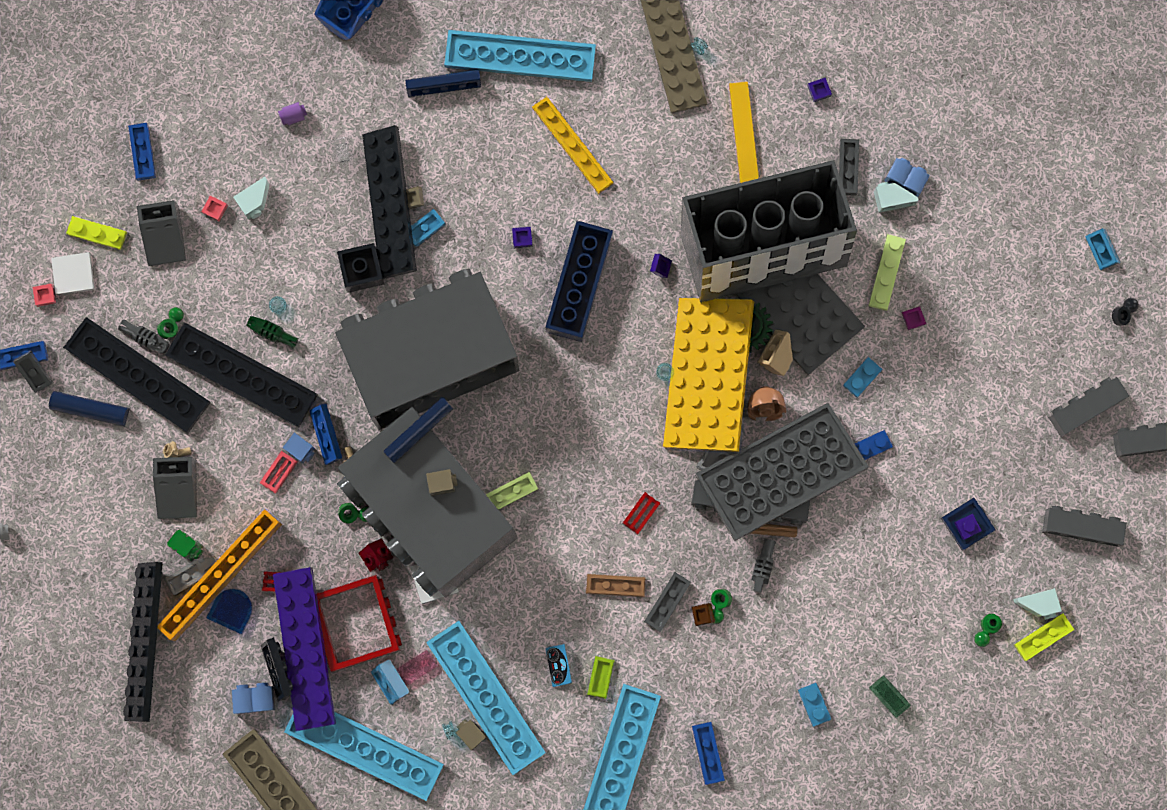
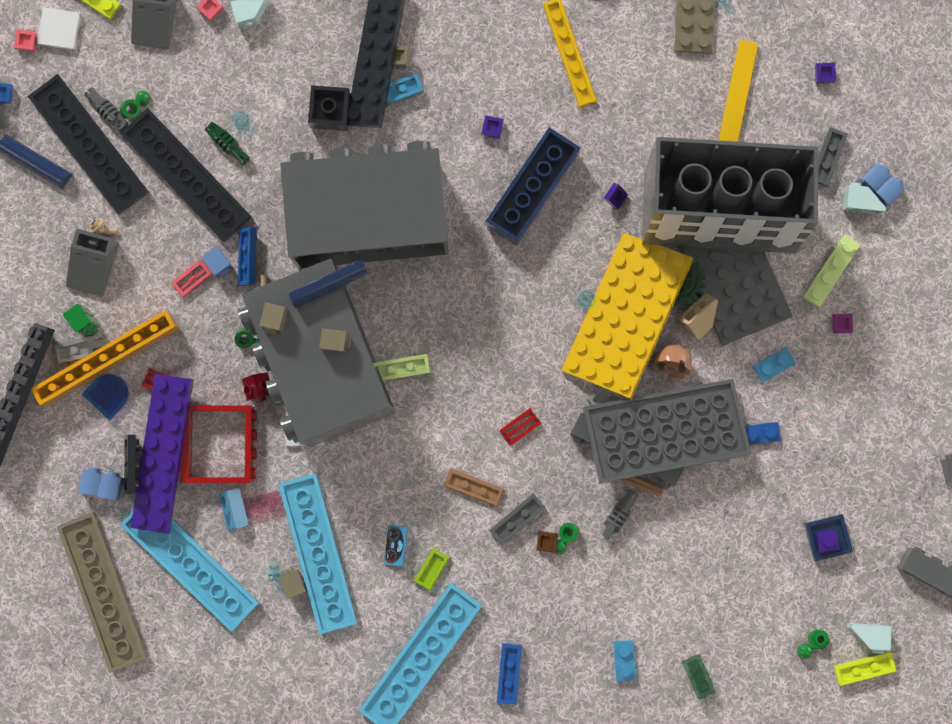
camera: 20 degrees right, 5 degrees up
(376, 479) = (273, 318): none -> dark tan brick

